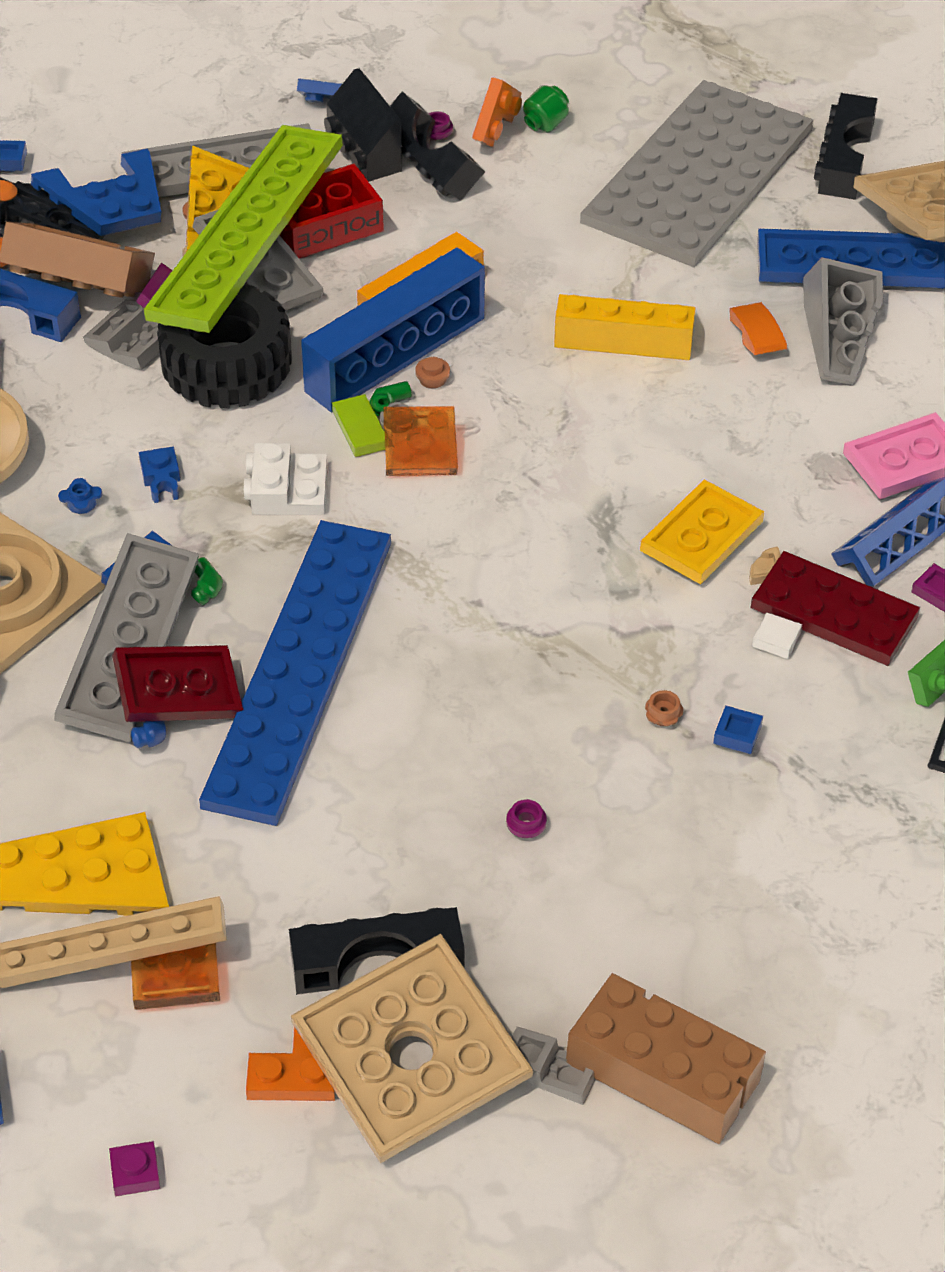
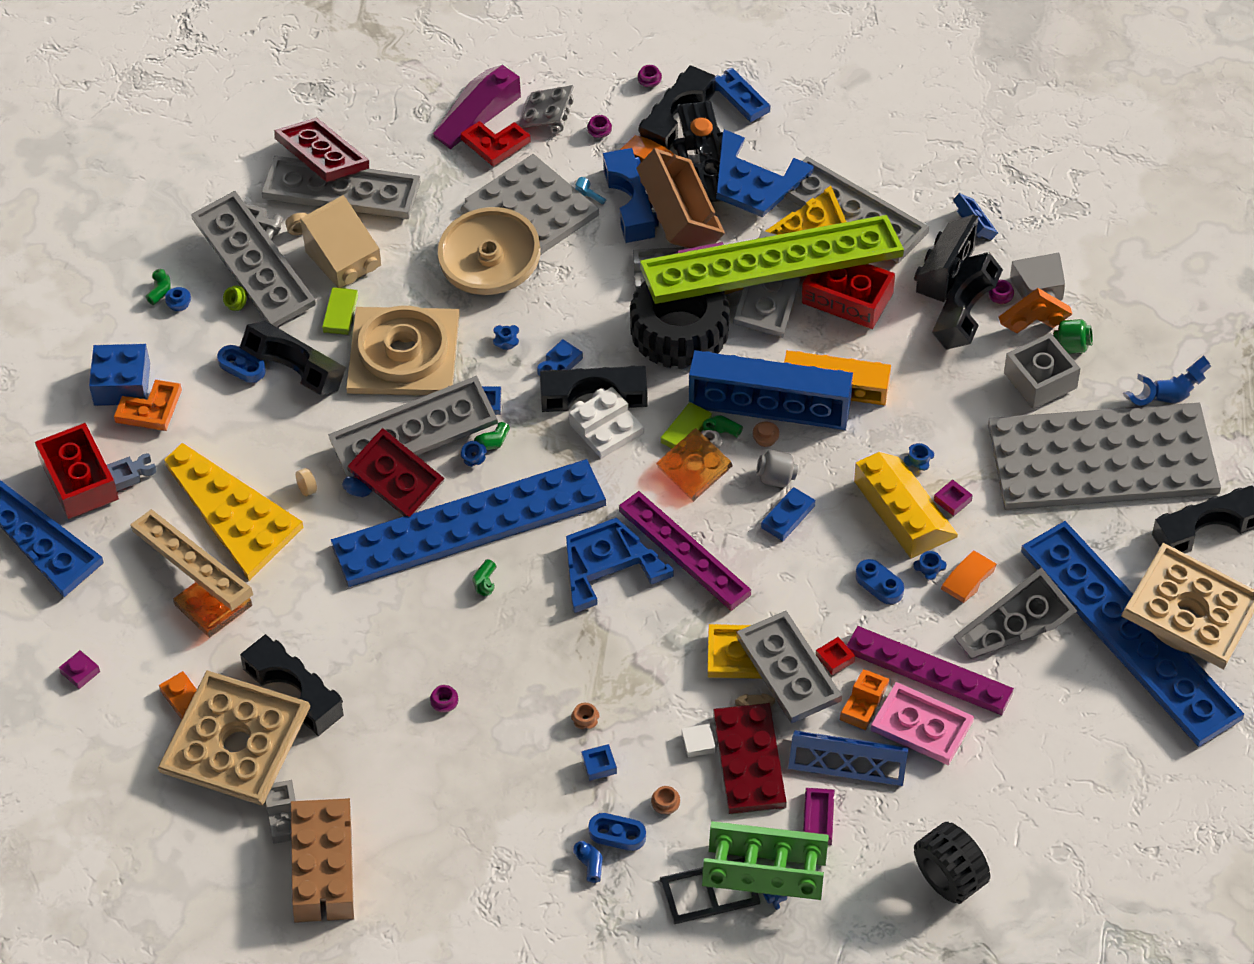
camera: 55 degrees right, 5 degrees up
(92, 776) = (306, 482): none -> tan tile
(205, 487) = (563, 387): none -> black arch
(212, 598) = (470, 447): none -> blue plate
(401, 700) = (481, 578): none -> green arm
(455, 91) = (1039, 272): none -> light grey torso
(458, 575) = (603, 551): none -> blue wing
(490, 384) = (776, 468): none -> light grey head
(521, 510) = (685, 550): none -> magenta plate
(550, 412) = (788, 514): none -> blue plate
(568, 145) = (1041, 370): none -> light grey brick
(576, 282) = (922, 451): none -> blue plate
(652, 286) = (953, 497): none -> magenta plate
(674, 84) = (1170, 390): none -> blue piece
(700, 393) = (878, 580): none -> blue plate
(716, 346) = (930, 558): none -> blue plate
(761, 504) = (789, 666): none -> light grey plate
(767, 471) = (835, 655): none -> red plate
(834, 702) = (665, 800): none -> nougat plate
(835, 481) = (864, 700): none -> orange slope
(840, 765) = (618, 830): none -> blue plate
(841, 418) = (930, 670): none -> magenta plate
(860, 807) = (591, 858): none -> blue arm

